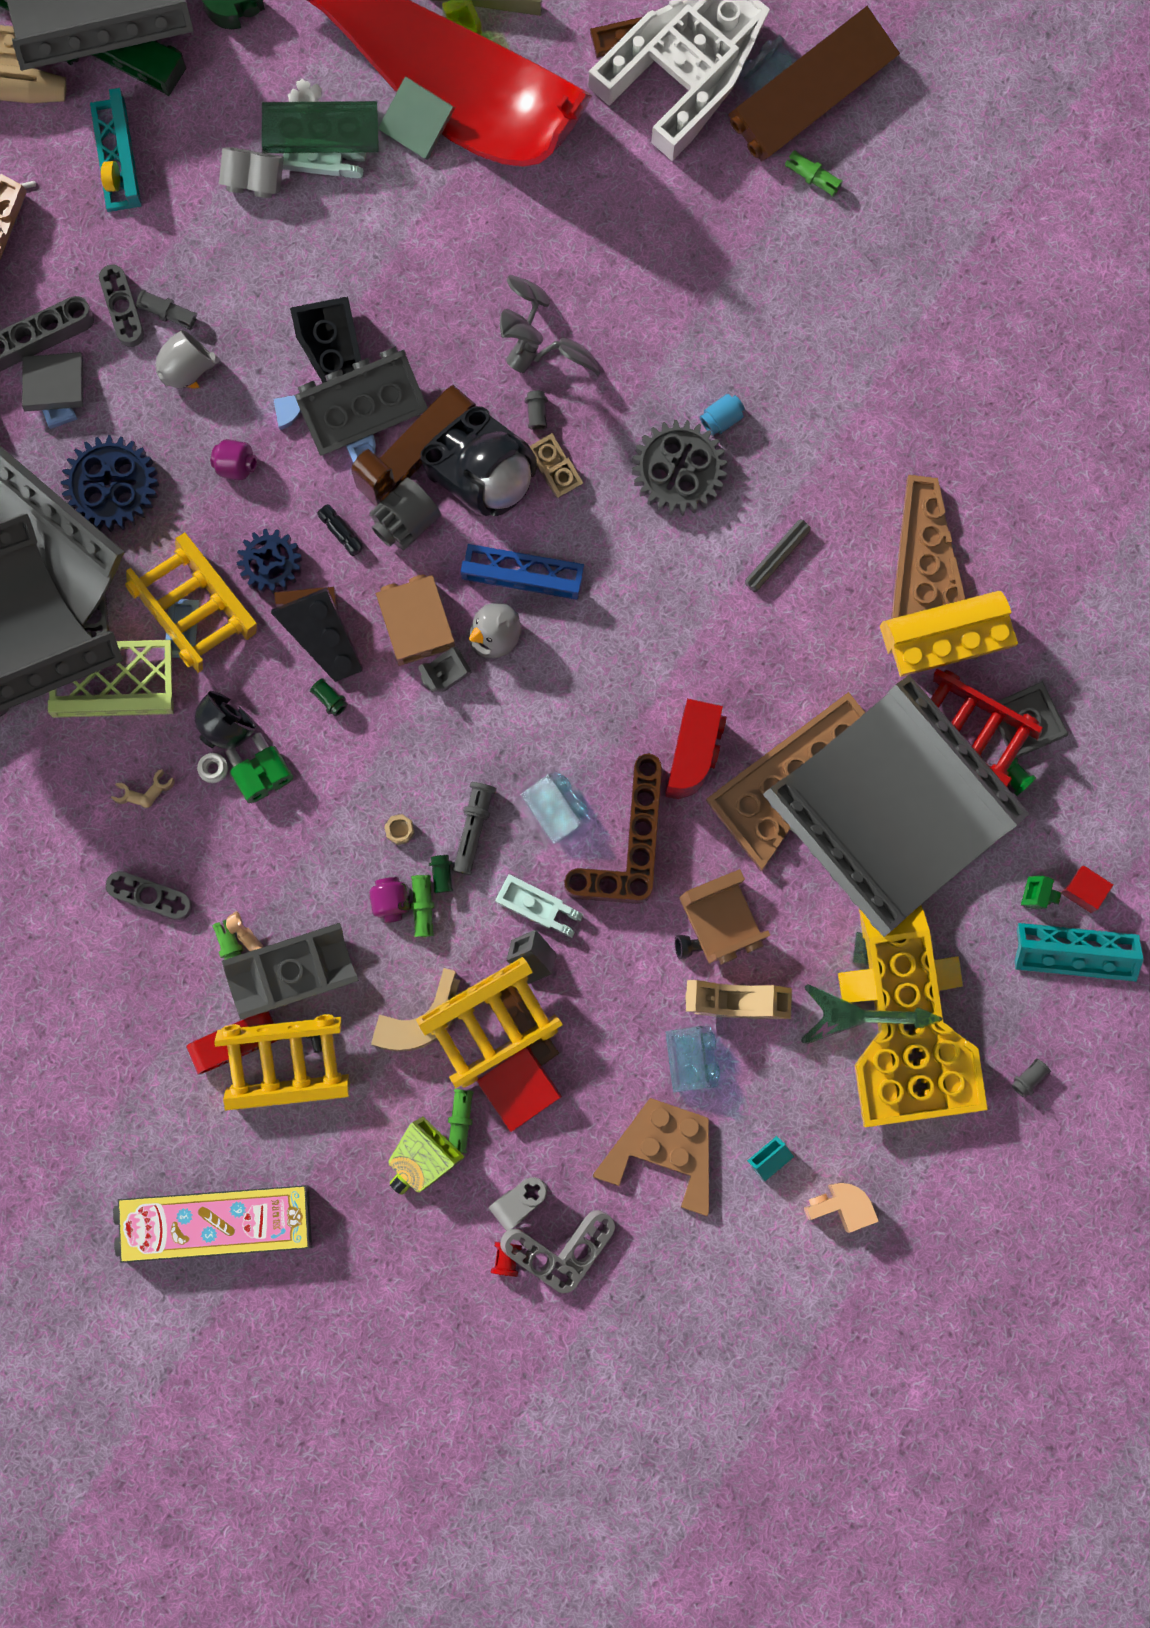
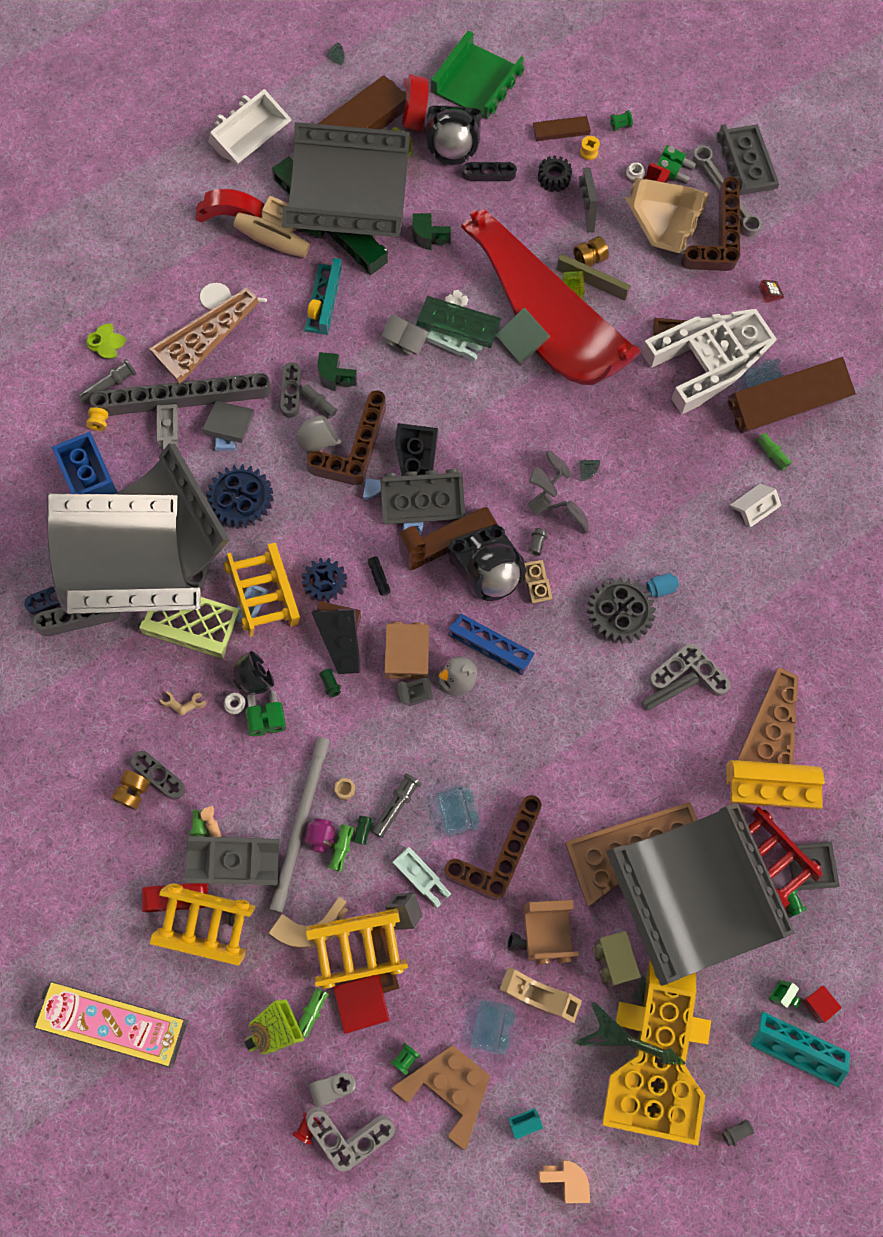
camera: 20 degrees right, 10 degrees down
(125, 917) = (133, 782): none -> pearl gold wheel
(168, 264) = (331, 374): none -> dark green brick
(233, 459) = (325, 507): magenta head -> none
(248, 355) = (360, 446): none -> reddish brown beam
(366, 988) = (281, 892): none -> light grey piece
(404, 515) = (424, 579): dark grey gear -> none
(570, 283) = (588, 469): none -> clear green tile
(597, 1135) = (405, 1058): none -> green bush
(695, 748) = (569, 803): red brick -> none
(798, 509) = (693, 664): none -> light grey beam
(813, 257) = (757, 504): none -> white panel
(817, 924) = (616, 959): none -> olive brick

